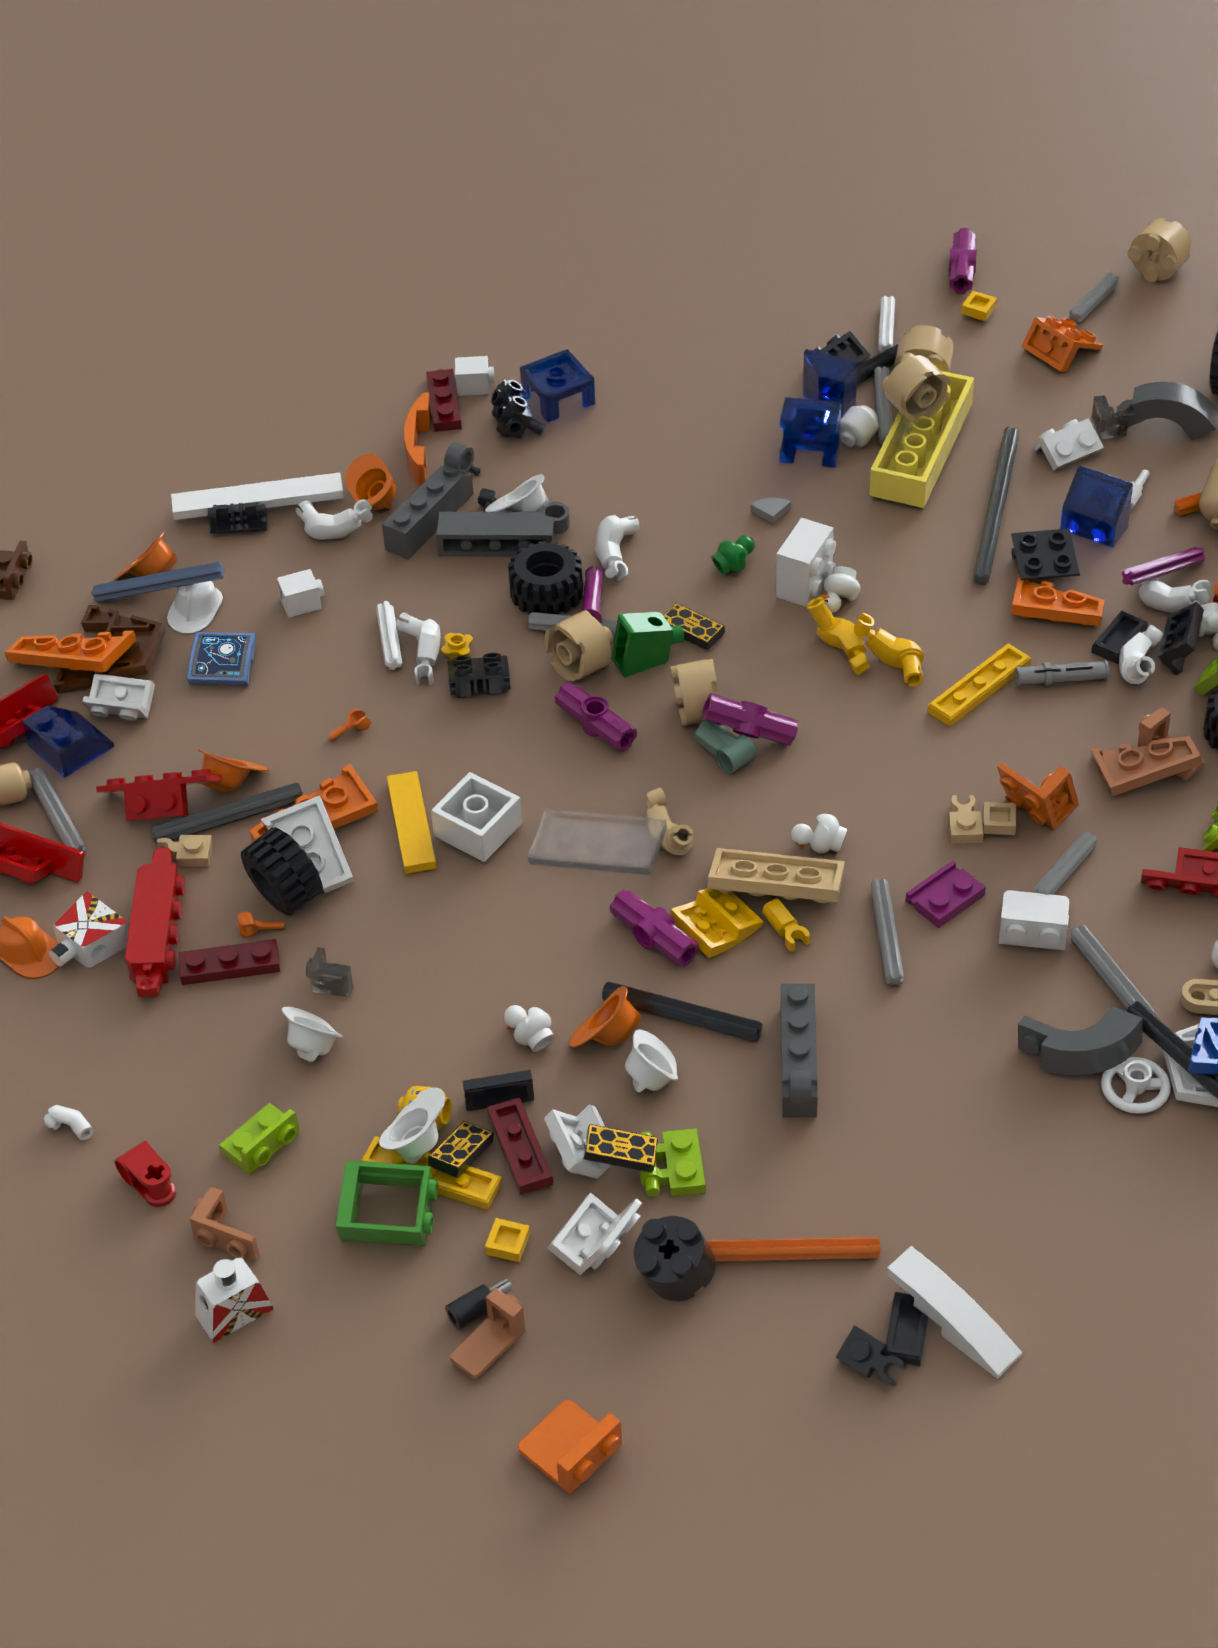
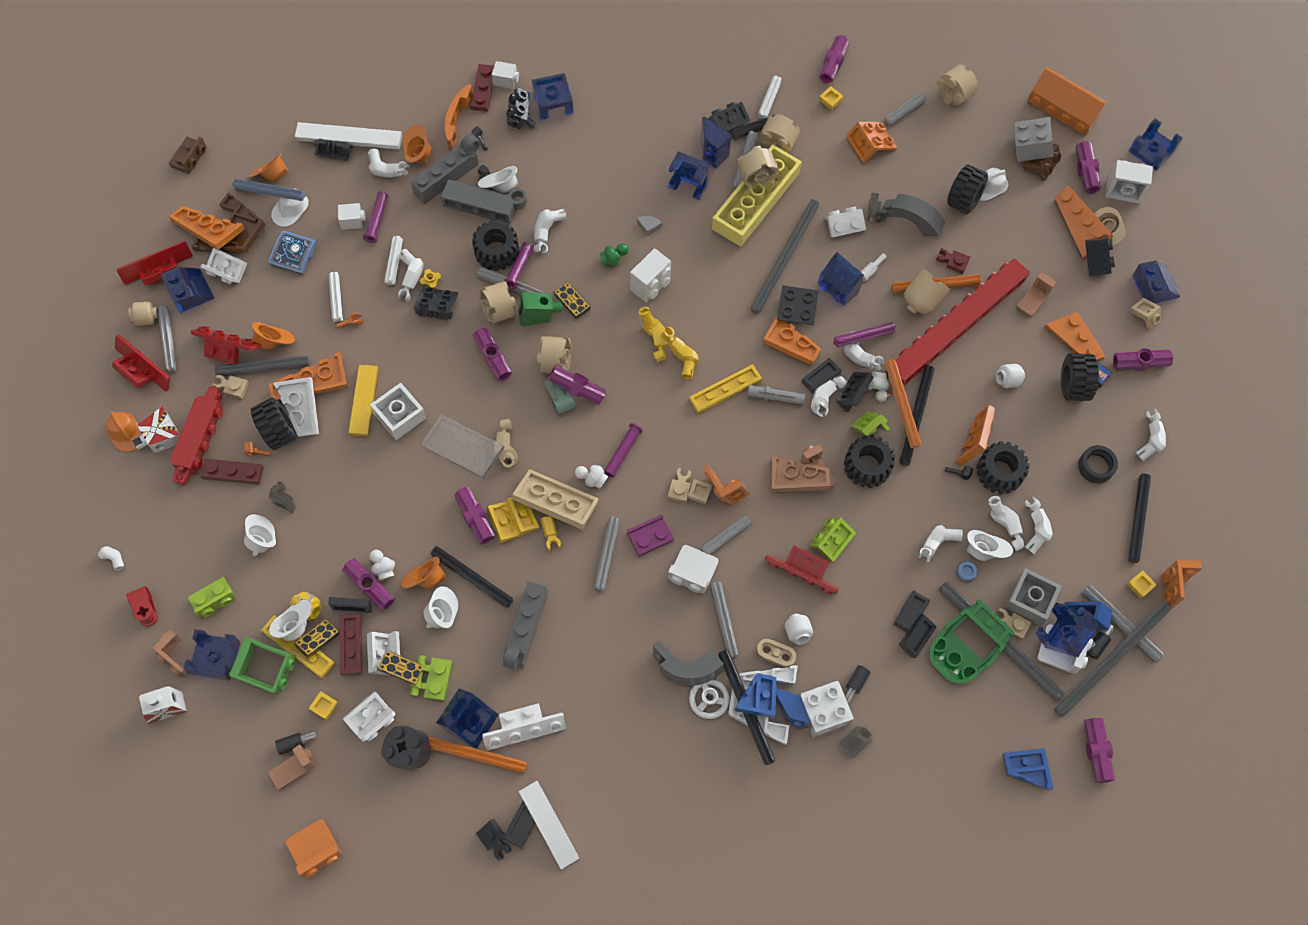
camera: 10 degrees right, 20 degrees up
(293, 1216) = (213, 655): none -> clear blue panel
(313, 700) = (335, 297): none -> white axle
(340, 611) = (376, 217): none -> magenta pin
(516, 1055) = (375, 592): none -> magenta piece
(755, 1197) = (467, 718): none -> clear blue slope
(838, 585) = (669, 295): white animal -> none
(852, 1190) = (523, 725): none -> white bracket
(858, 426) = (722, 175): white head -> none
(862, 763) = (623, 450): none -> magenta pin

